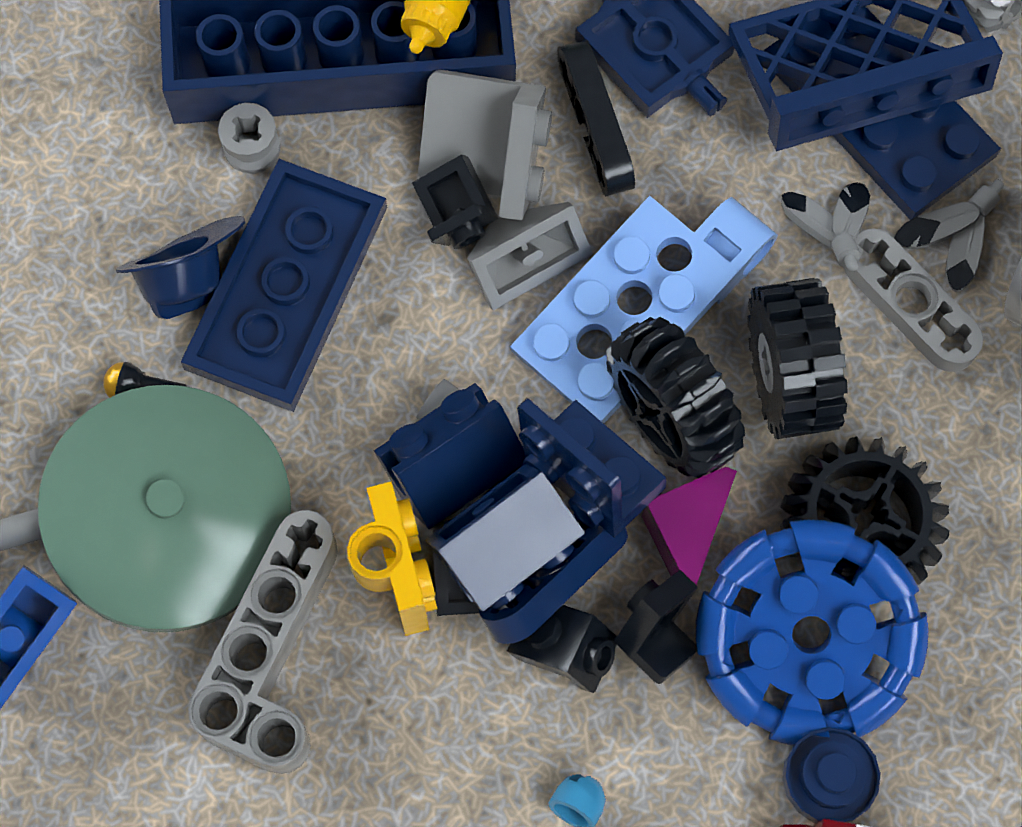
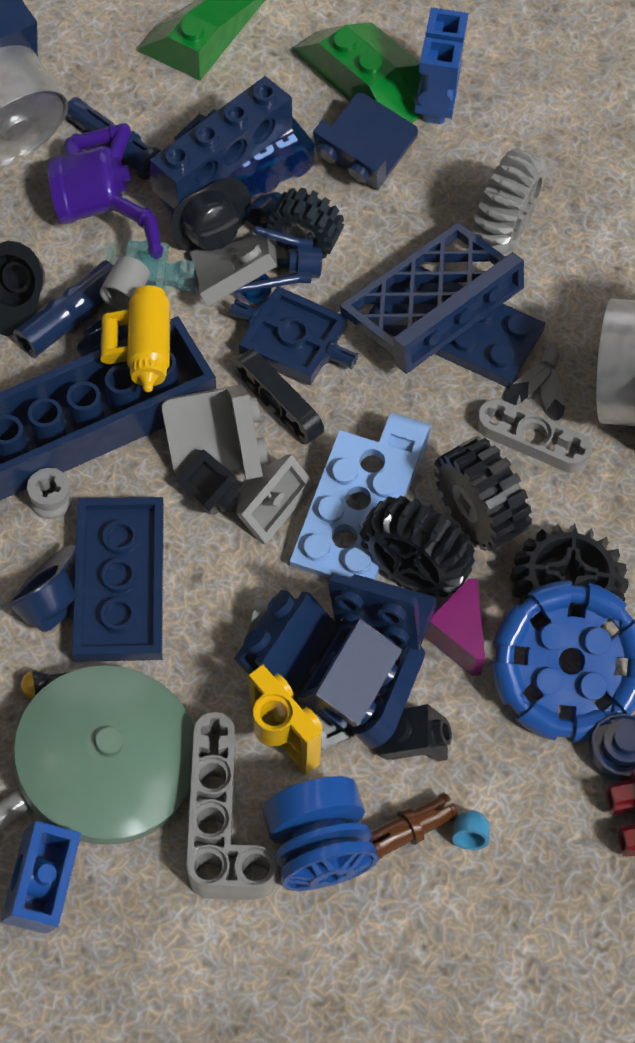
camera: 25 degrees left, 10 degrees down
(374, 729) = (319, 833): none -> blue wheel
(503, 762) = (413, 824): none -> reddish brown pin
(650, 632) = (467, 706): black bracket -> none
(836, 230) = (466, 410): light grey piece -> none

